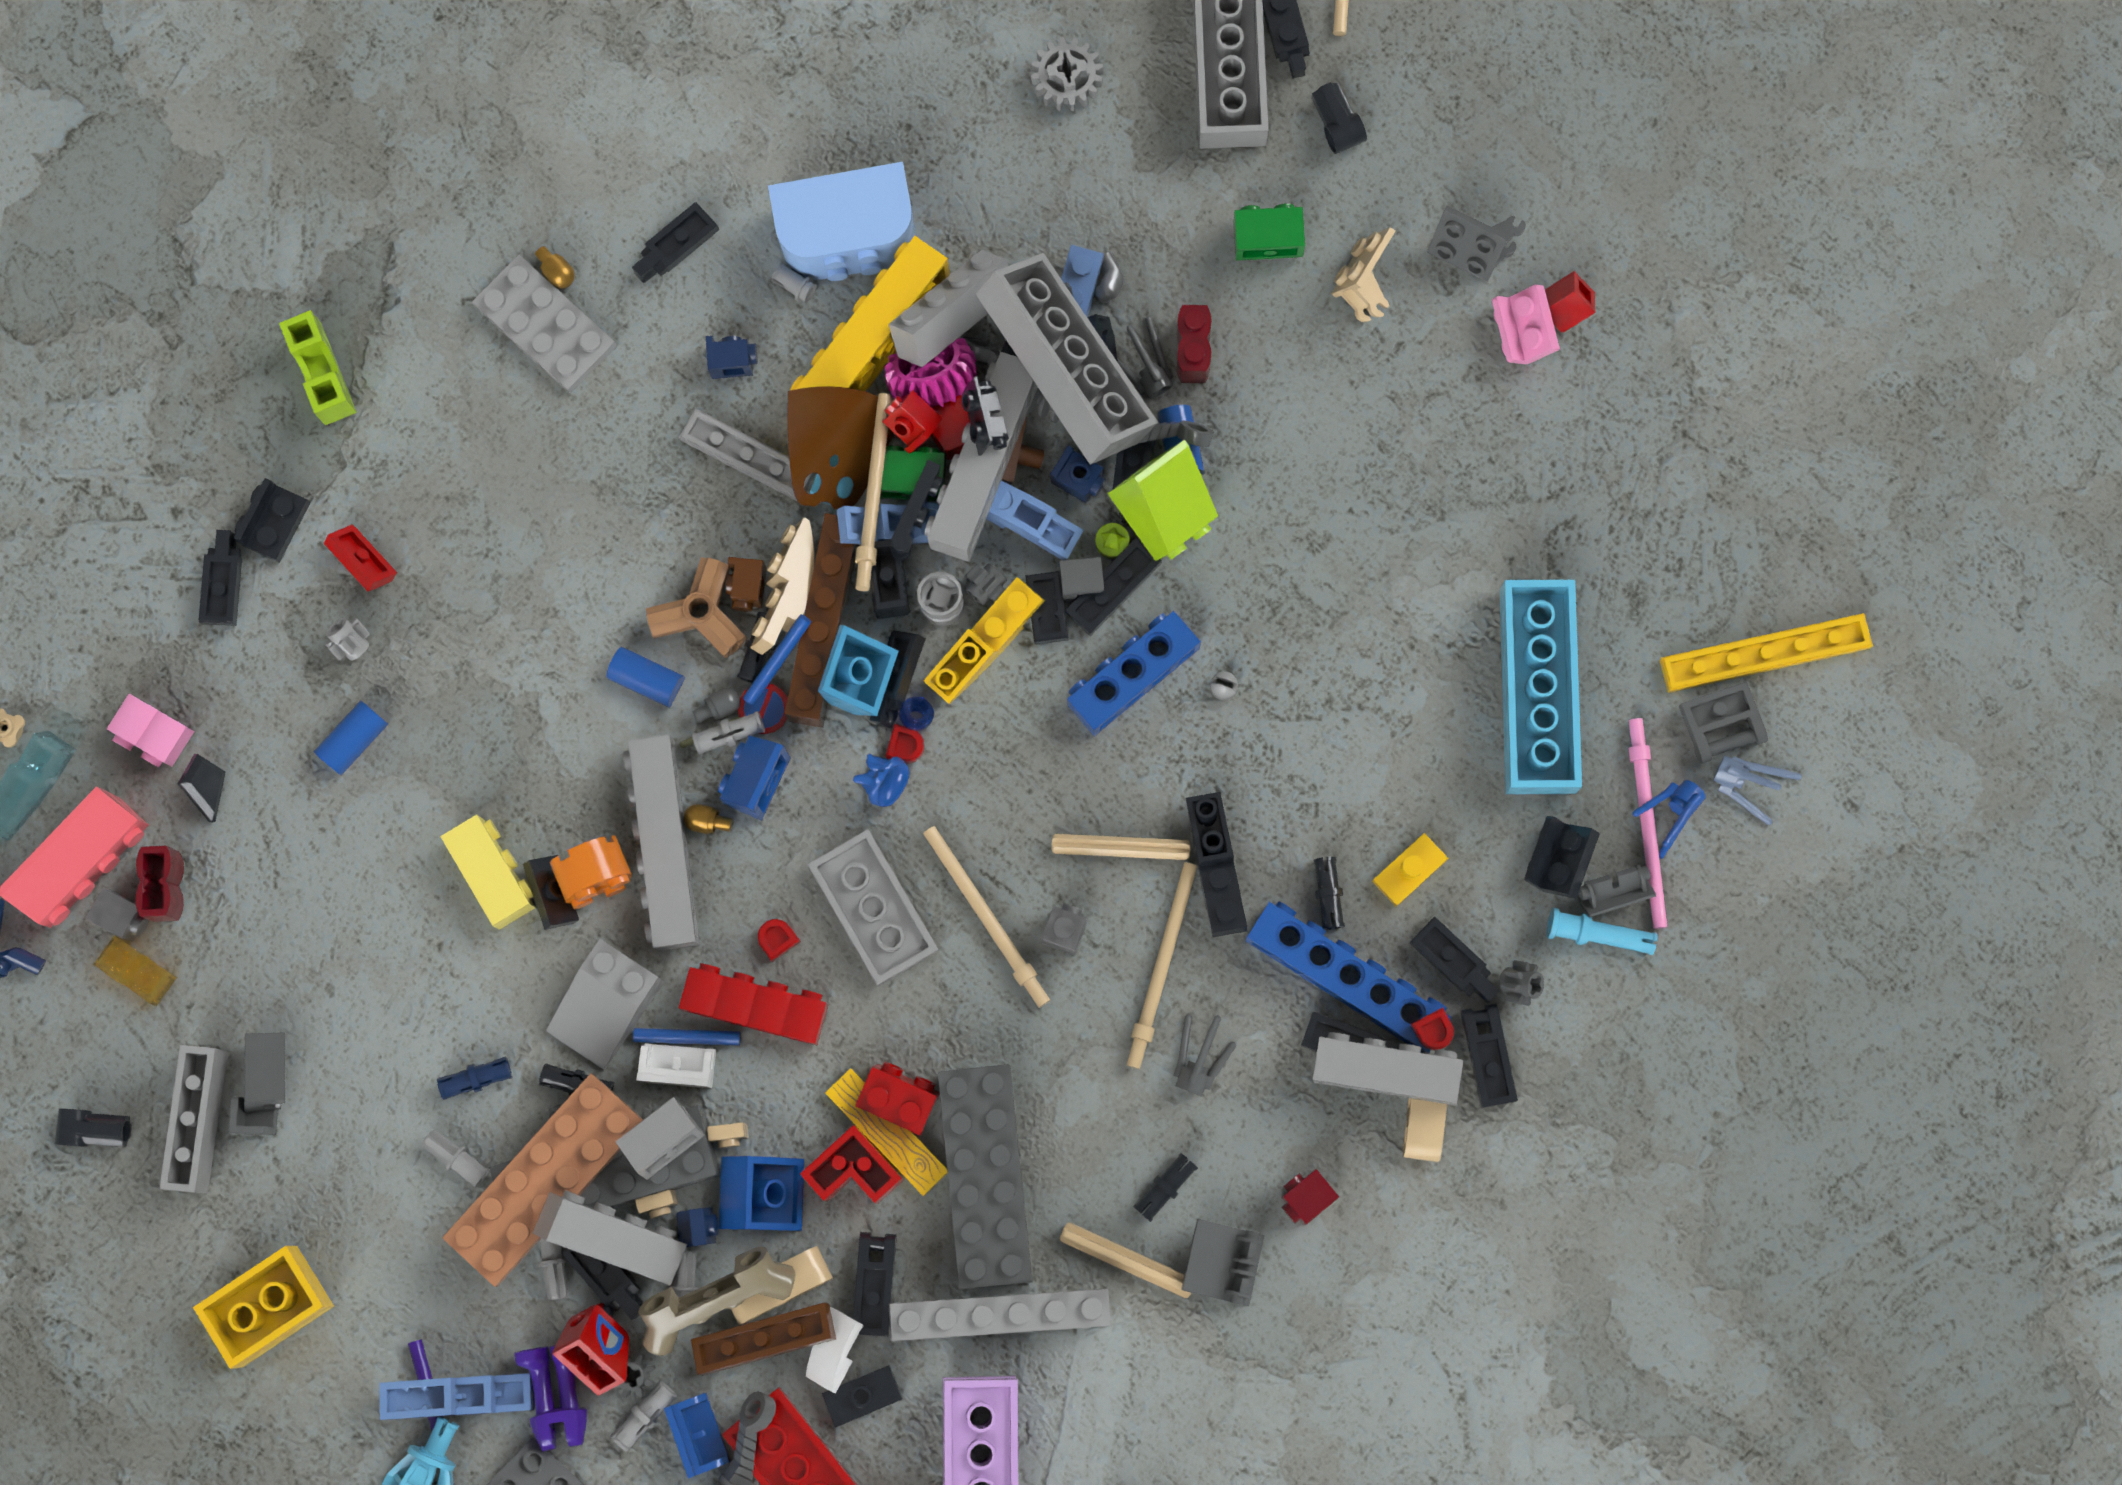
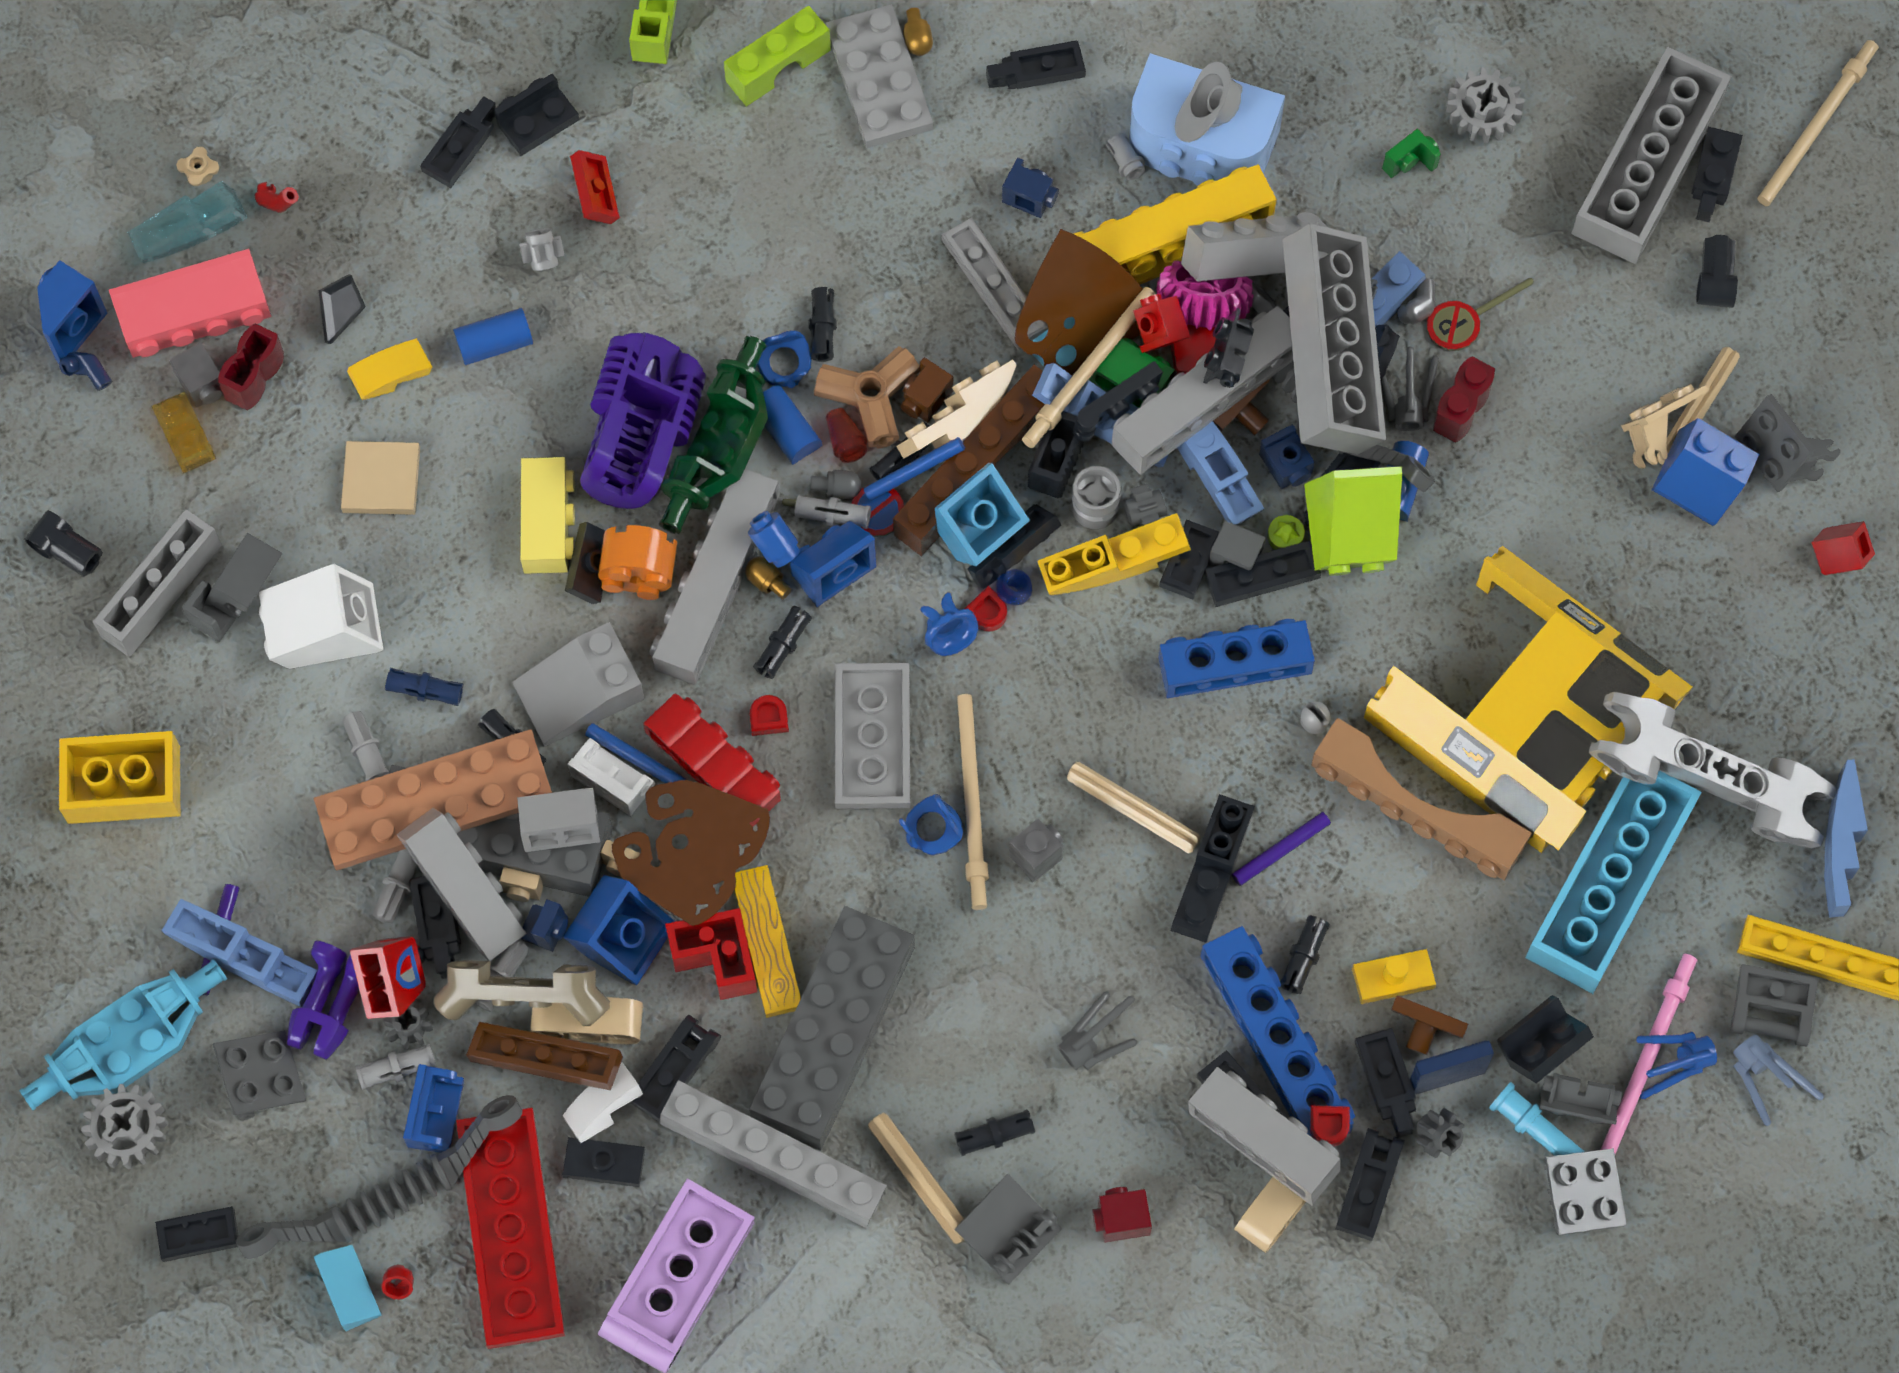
camera: 25 degrees right, 10 degrees down
(95, 721) = (278, 202): none -> red arm
(150, 731) = (321, 235): bright pink brick -> none
(278, 816) = (385, 369): none -> yellow slope
(328, 915) = (380, 477): none -> tan tile
(351, 1070) = (320, 618): none -> white slope
(436, 374) = (755, 67): none -> lime arch
(521, 736) = (644, 408): none -> dark purple connector
(600, 723) = (723, 439): none -> dark green plate
(615, 601) = (792, 340): none -> blue piece
(624, 571) = (822, 324): none -> black pin
(695, 788) = (773, 538): none -> blue brick
(701, 661) = (846, 438): none -> clear red cone
(752, 868) = (782, 642): none -> black pin
(803, 1095) = (710, 857): none -> reddish brown piece
(845, 204) = (1209, 103): none -> light grey piece
(898, 1097) = (793, 912): red bracket -> none
(980, 942) = (953, 829): none -> blue piece
(1028, 150) = (1409, 152): none -> green bracket
(1143, 1031) = (1057, 981): tan bar -> none
(1149, 279) = (1457, 324): none -> piece
(1259, 813) = (1281, 848): none -> dark purple bar
(1268, 232) = (1591, 338): green brick -> none
(1275, 706) = (1484, 839): none -> medium nougat arch
(1384, 219) = (1714, 380): none -> tan axle
(1420, 584) = (1533, 730): none -> yellow piece
(1423, 298) = (1704, 471): none -> blue slope
(1460, 895) = (1426, 1024): none -> reddish brown tile
(1503, 924) = (1451, 1067): none -> dark blue tile
(1519, 566) = (1655, 747): none -> light grey piece
(1525, 325) = (1789, 547): bright pink bracket -> none
(1662, 965) = (1585, 1191): none -> hinge
(1696, 539) = (1844, 829): none -> medium blue slope

